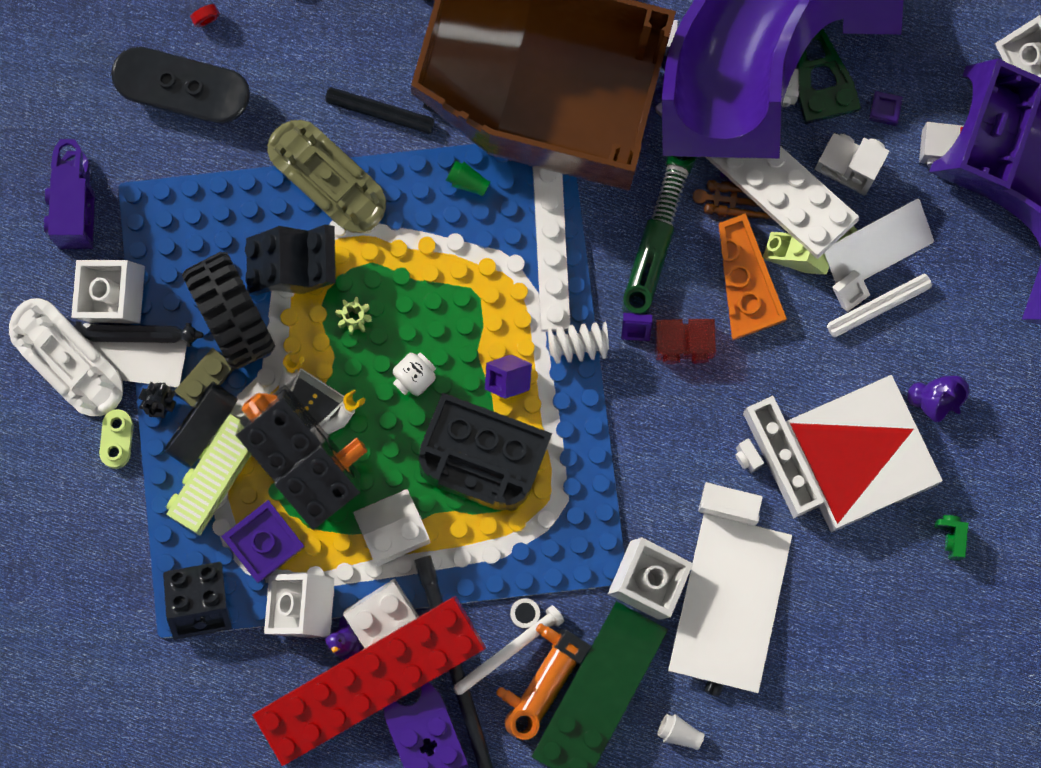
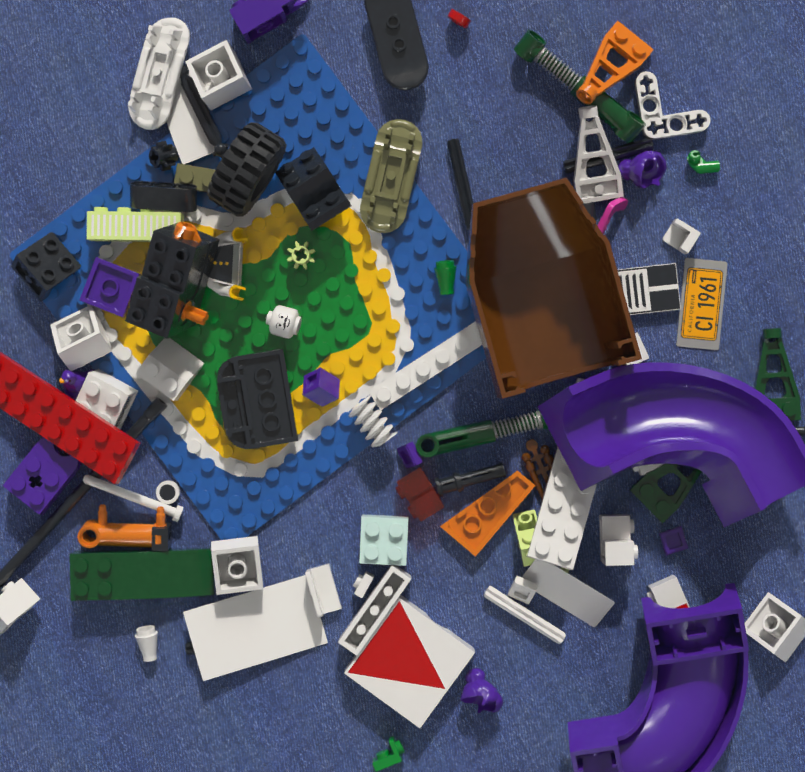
camera: 60 degrees right, 10 degrees up
(116, 438) = (124, 143): yellowish green plate -> none
(695, 292) = (456, 480): none -> black pin
(713, 405) = (383, 540): none -> light aqua brick

